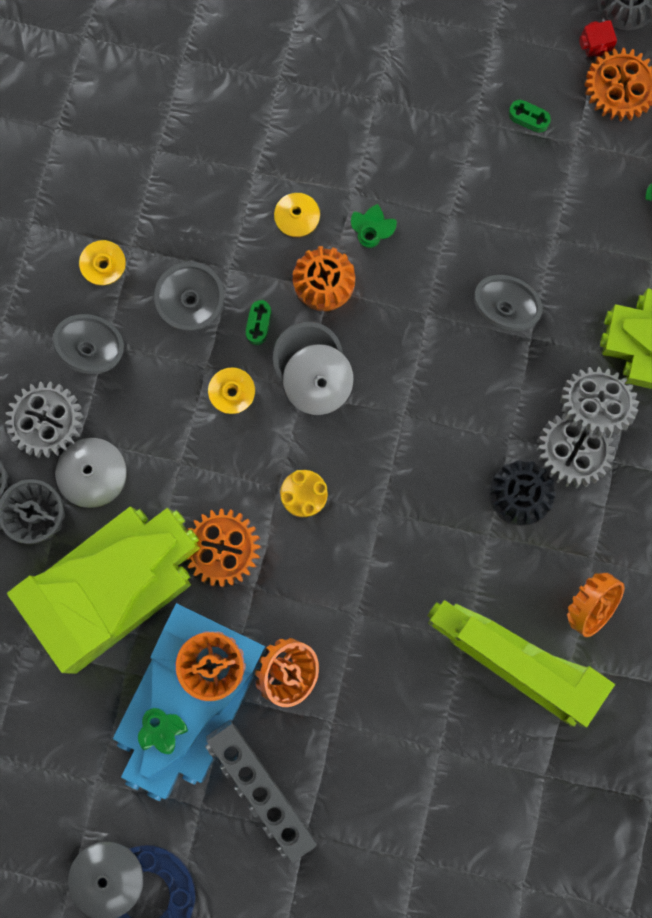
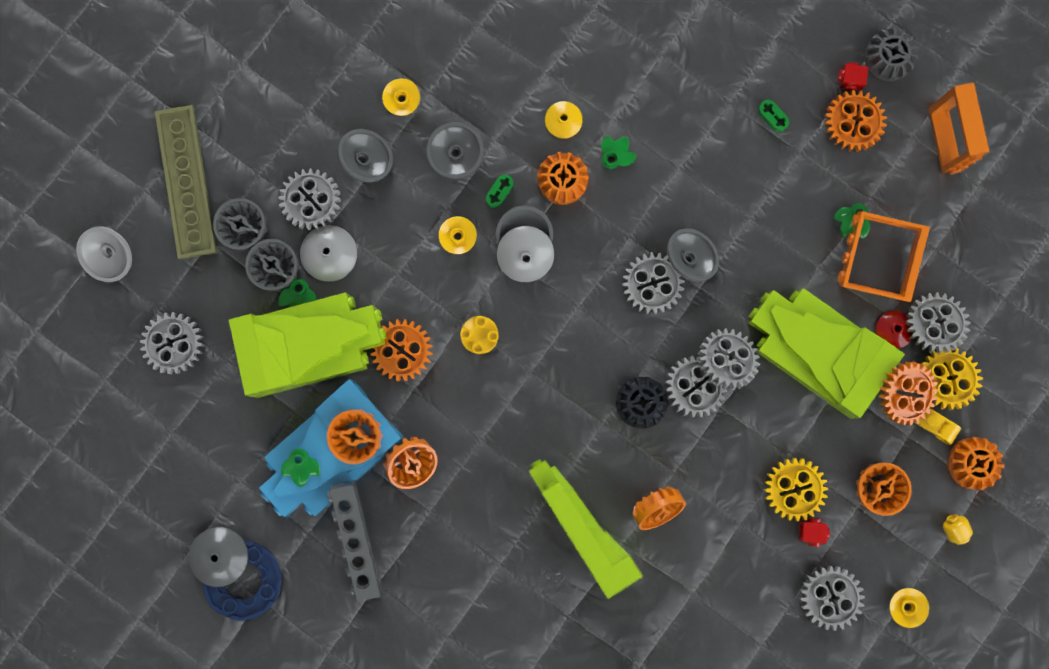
camera: 20 degrees right, 5 degrees up
(69, 540) = (293, 298): none -> green plate
(490, 367) = (658, 299): none -> light grey gear

